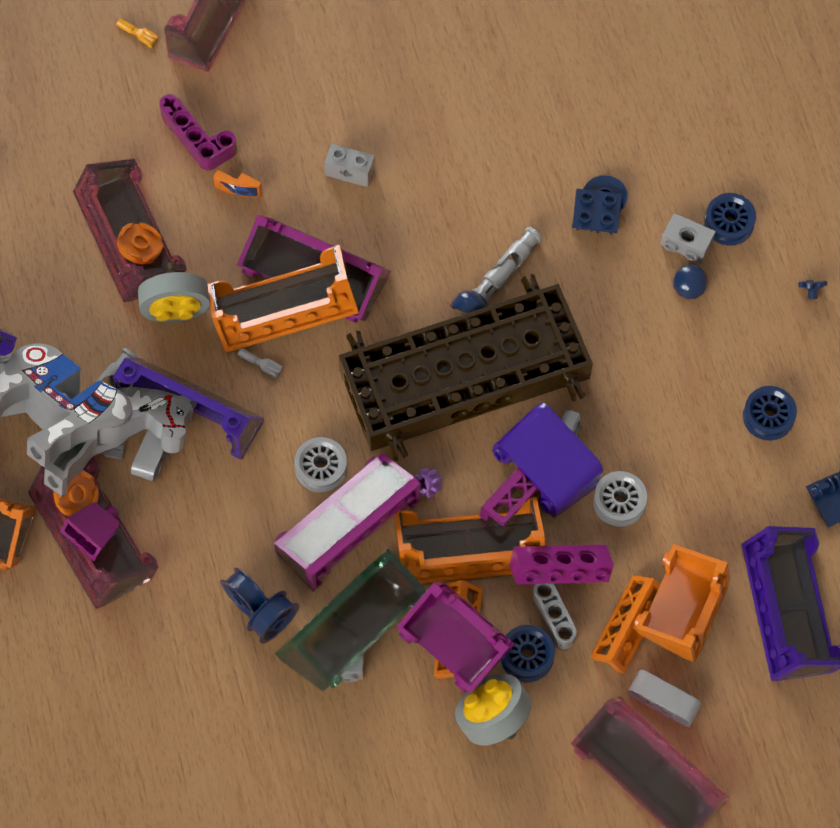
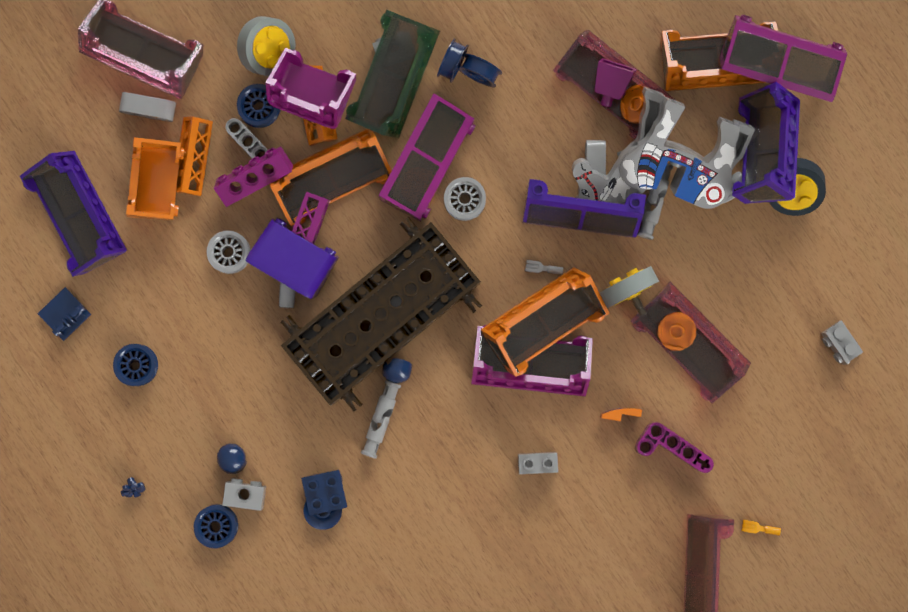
camera: 165 degrees right, 20 degrees up
(430, 482) = (377, 211): medium lavender gear -> none

